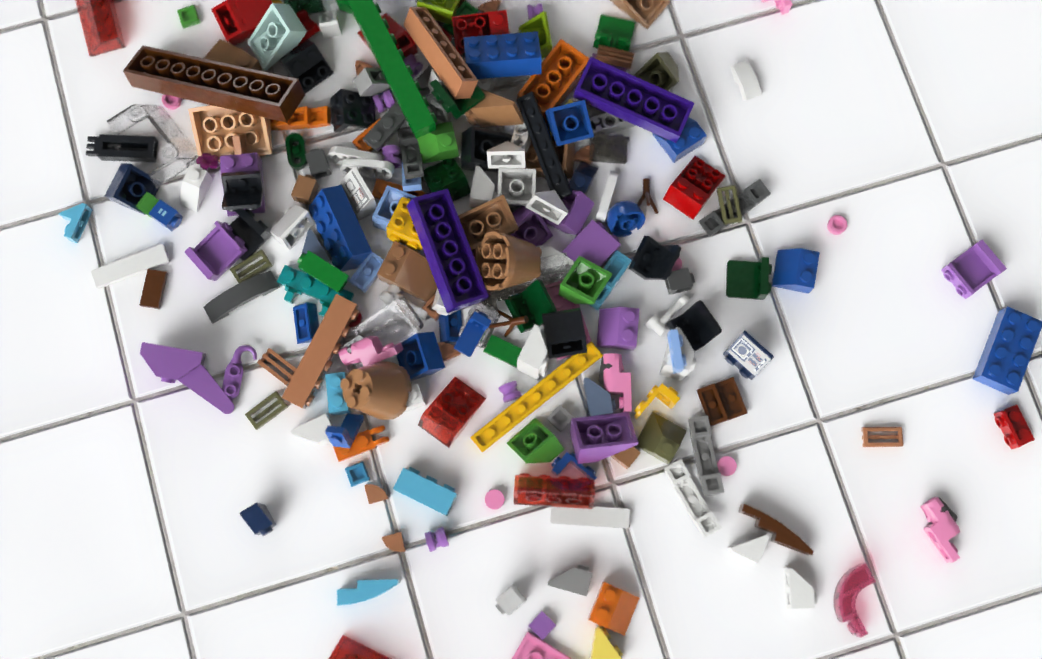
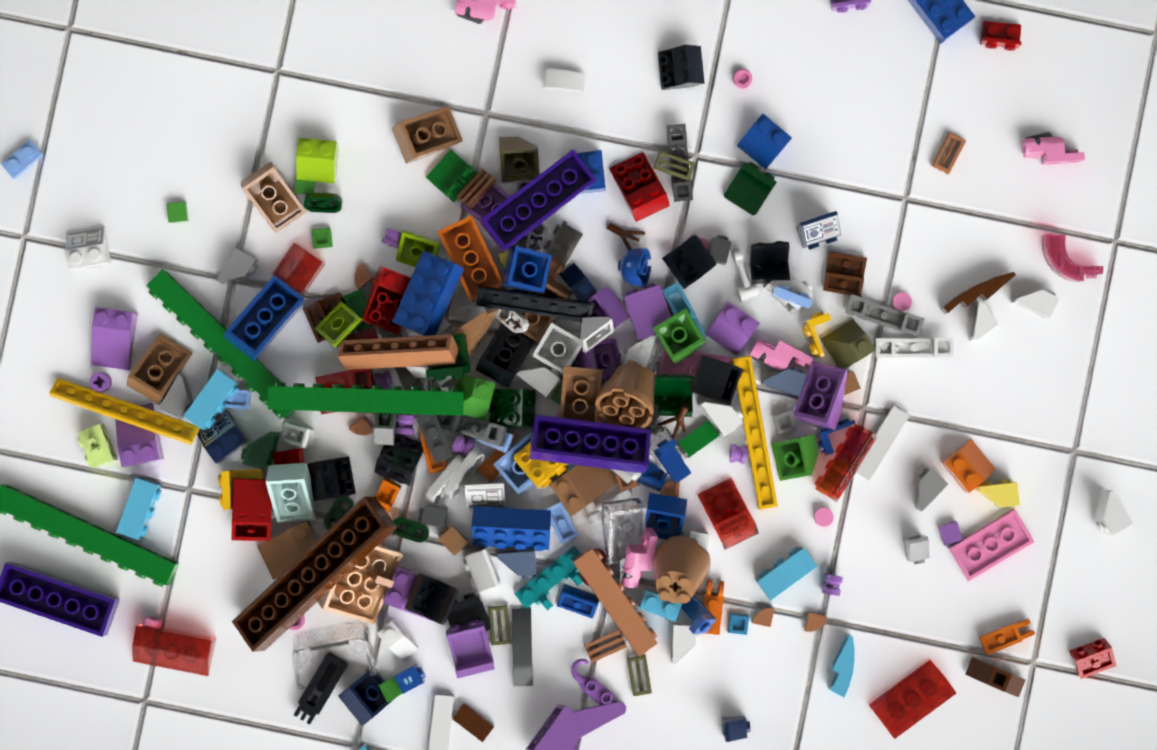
camera: 60 degrees left, 10 degrees up
(188, 16) = (217, 564): bright green tile -> none
(208, 161) = (379, 615): magenta plant -> none
(323, 271) = (548, 563): green brick -> none
(506, 156) = (525, 342): white slope -> none
(607, 196) = (606, 270): white beam -> none
(816, 167) = (681, 67): none -> black slope

